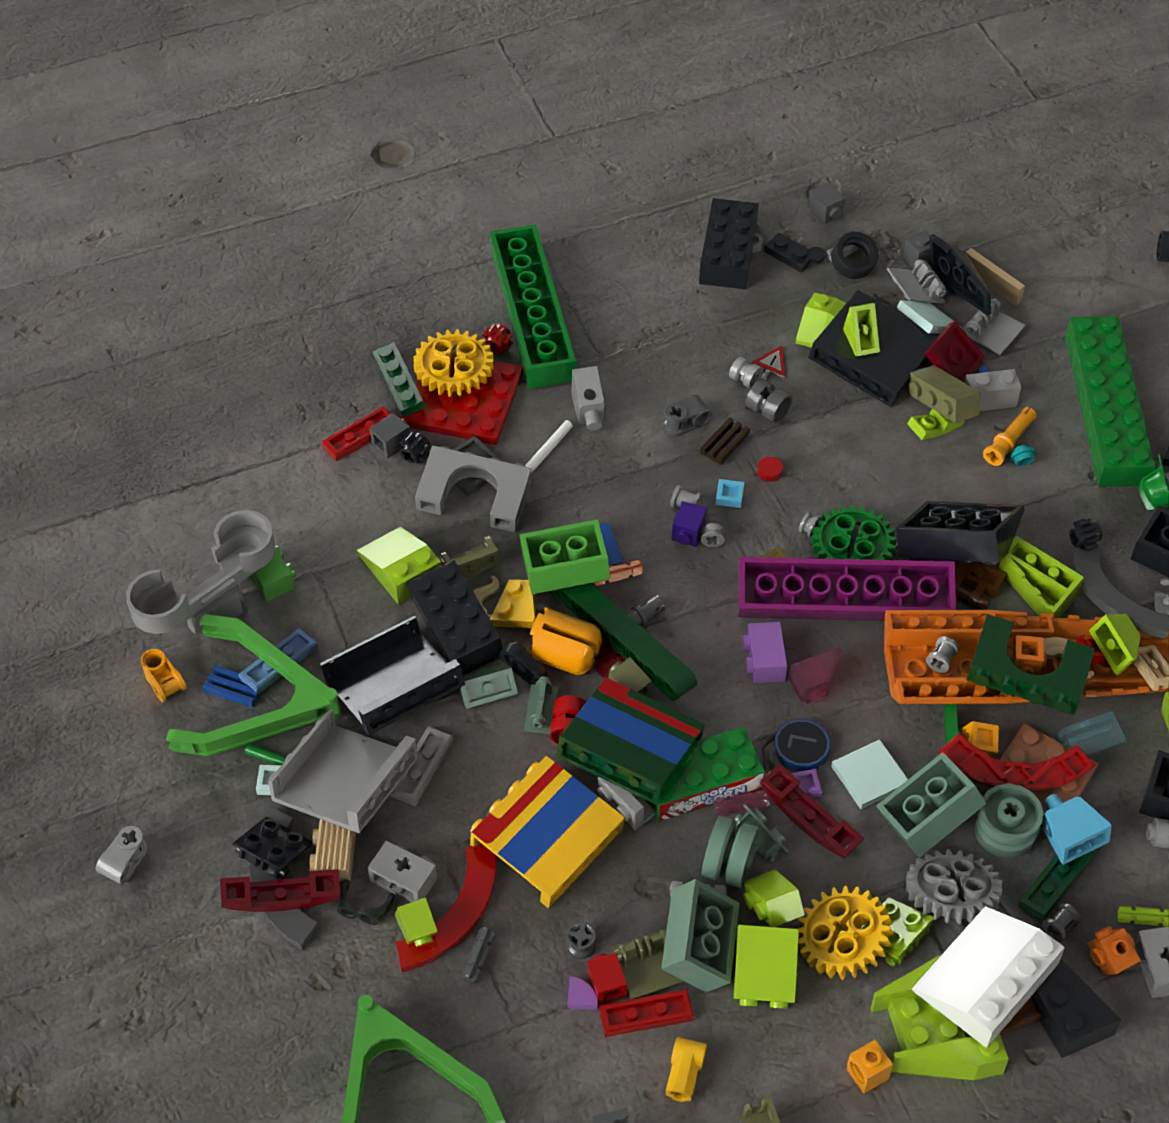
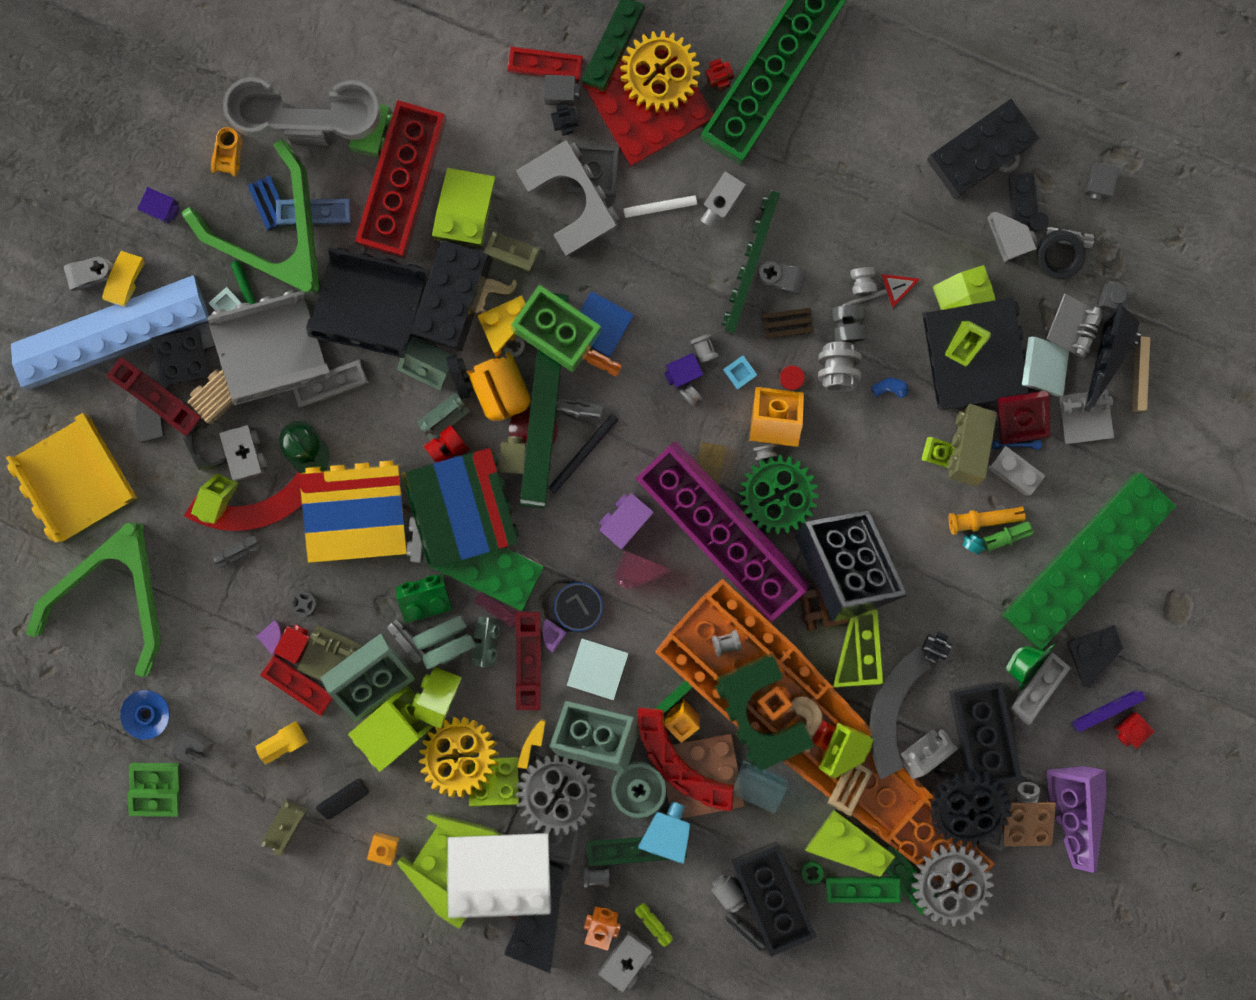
camera: 45 degrees right, 35 degrees up
(139, 758) = (159, 206): none -> dark purple brick
(160, 835) = (121, 279): none -> yellow slope
(186, 890) = (108, 333): none -> light blue slope
(269, 1028) = (71, 479): none -> yellow panel
(329, 577) = (401, 179): none -> red brick
(446, 829) = (303, 446): none -> dark green piece
(657, 426) = (753, 252): none -> dark green plate
(675, 846) = (423, 598): none -> green bracket
(677, 630) = (583, 453): none -> black bar
(788, 1065) = (342, 799): none -> black slope
(792, 496) = (777, 416): none -> light orange slope
(795, 428) = (839, 368): none -> light grey piece
(808, 273) = (1011, 236): none -> light grey slope
(840, 417) = (891, 384): none -> blue arm
(885, 864) = (534, 738): none -> yellow slope
(1039, 432) = (1008, 536): none -> bright green axle

